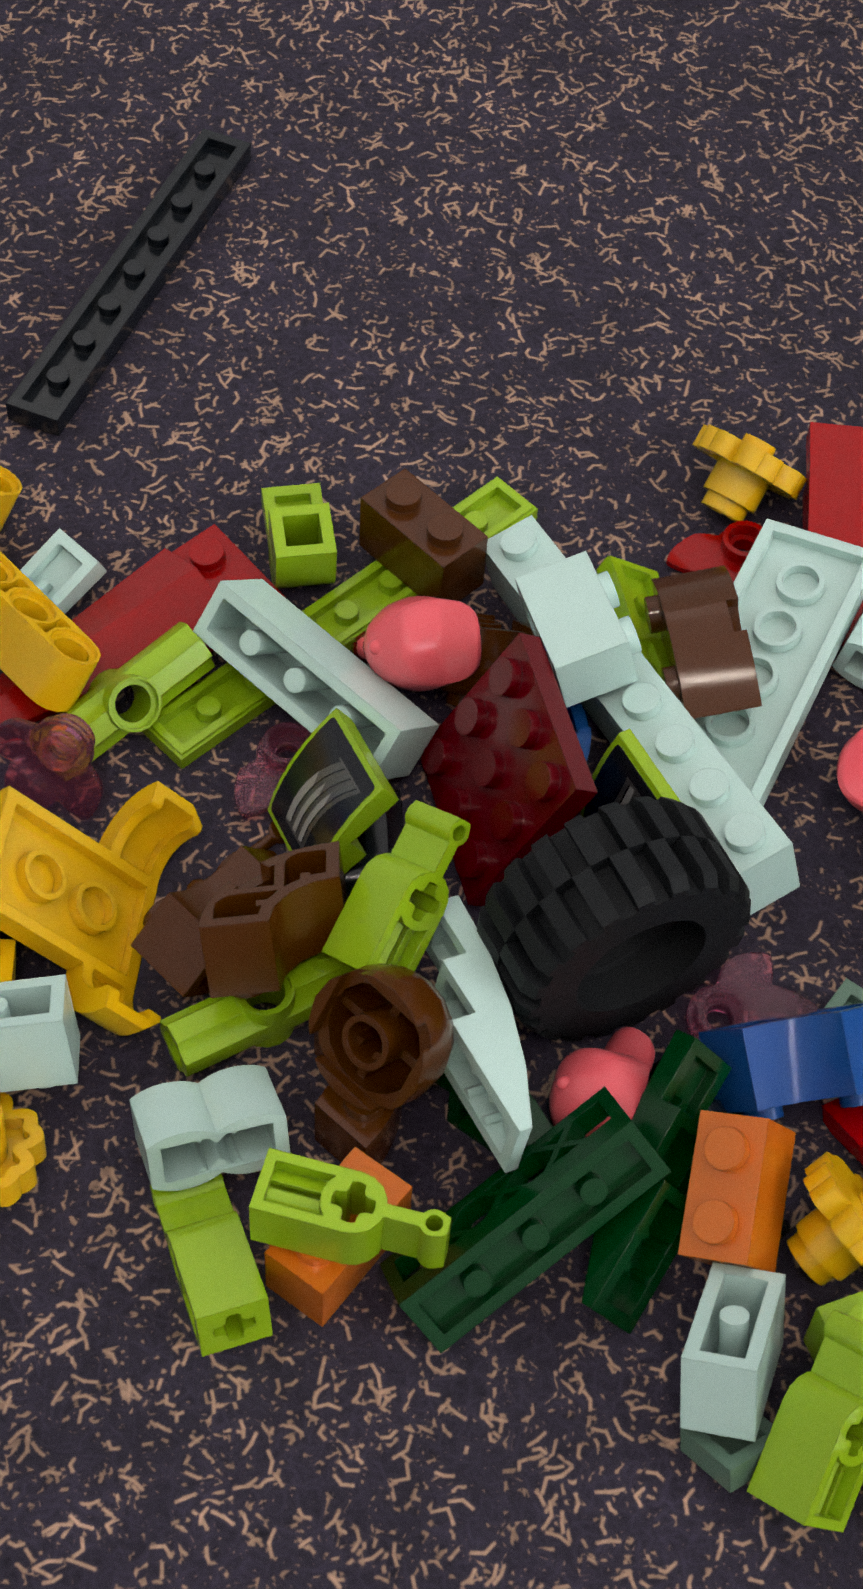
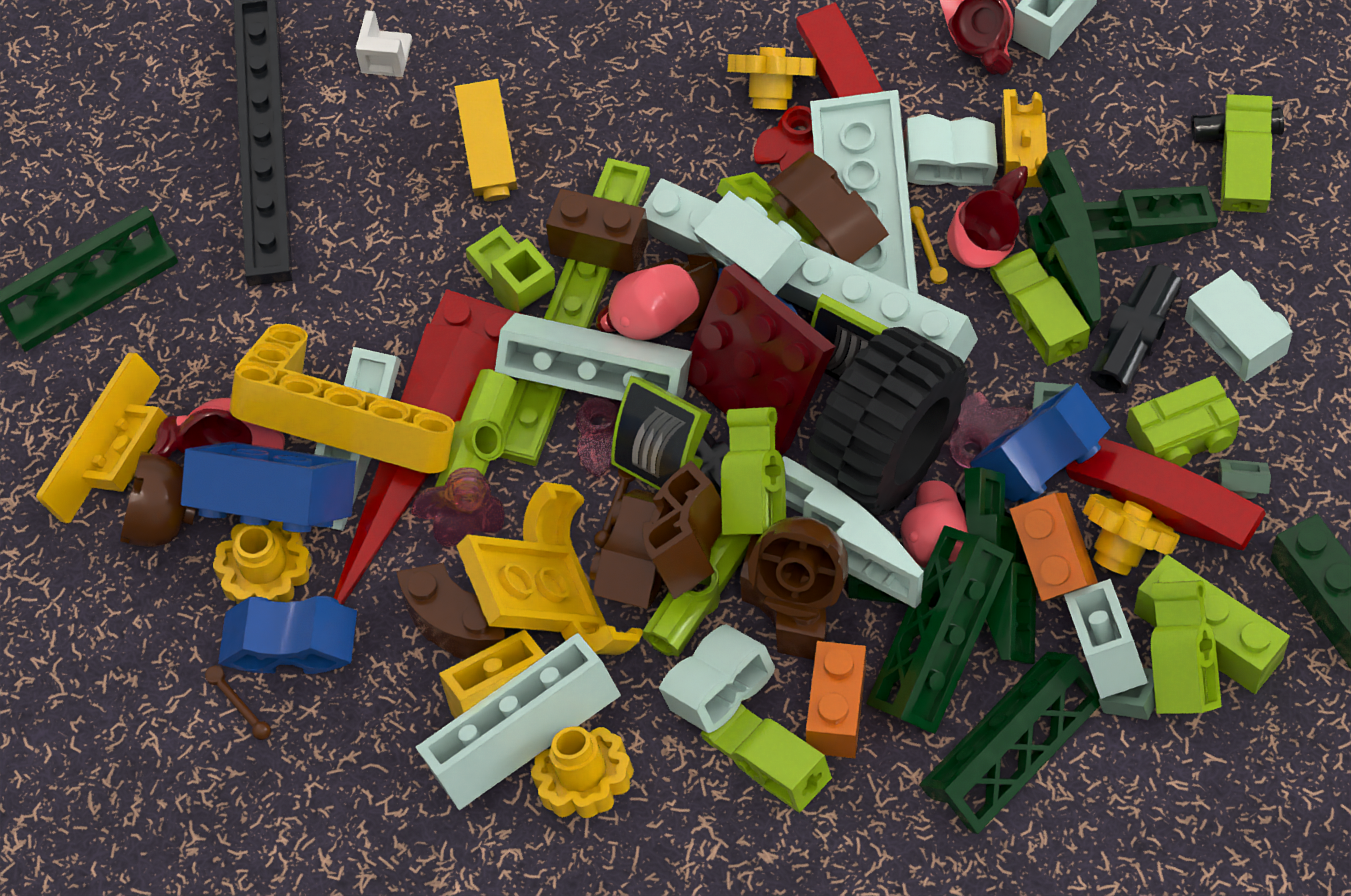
camera: 20 degrees left, 5 degrees up
(307, 1210) = (822, 687): lime piece -> none
(321, 251) = (381, 50): none -> white panel
(369, 385) = (486, 139): none -> yellow slope
(529, 1394) = (999, 731): none -> dark green fence
(808, 794) = (937, 274): none -> yellow hinge

